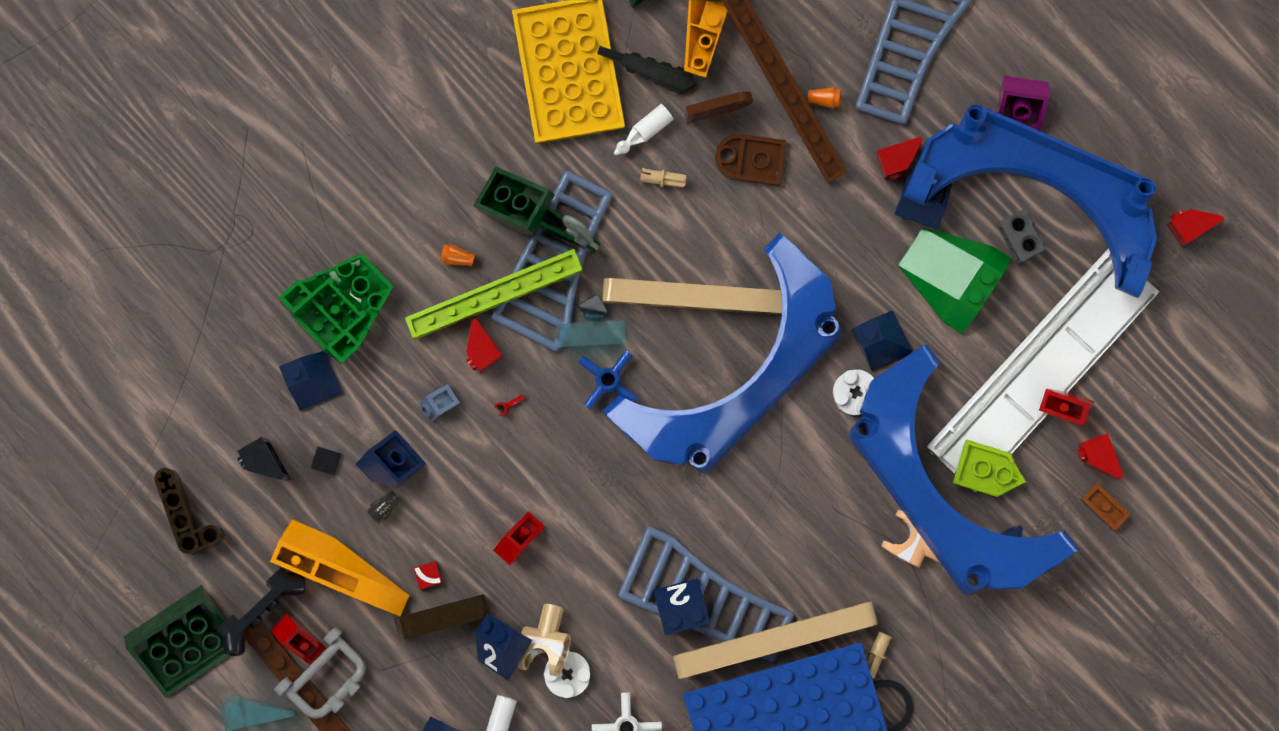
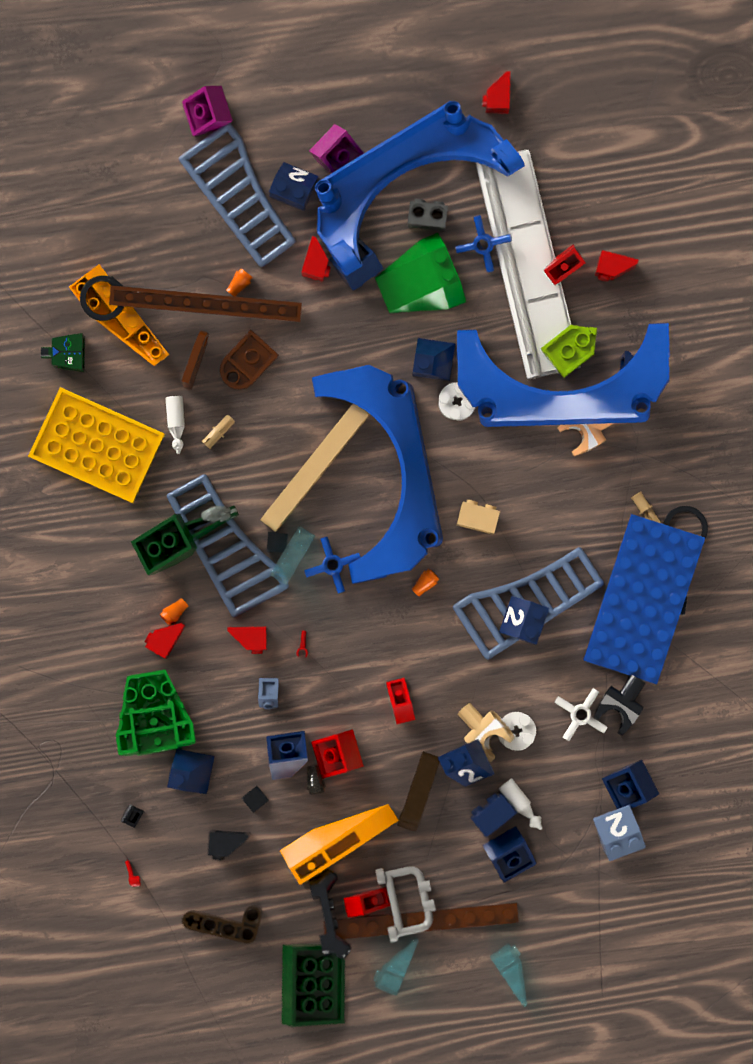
camera: 60 degrees left, 0 degrees up
(167, 396) = (134, 881): none -> red hand
(229, 352) = (132, 816): none -> black slope
(421, 265) = (164, 639): none -> red slope
(424, 511) = (337, 754): none -> red slope
(427, 575) = (383, 782): red tile -> none
(467, 706) = (492, 814): none -> dark blue brick
(494, 294) = (219, 603): lime plate -> none
(648, 68) = (134, 389): pearl dark grey sword -> none
(653, 483) = (426, 581): none -> orange cone
(753, 491) = (478, 517): none -> tan brick
(775, 640) = (589, 572): tan beam -> none
(958, 84) = (293, 186): none -> dark blue slope
(1024, 306) = (483, 236): none -> blue bar
(1105, 506) = (650, 286): dark orange plate -> none

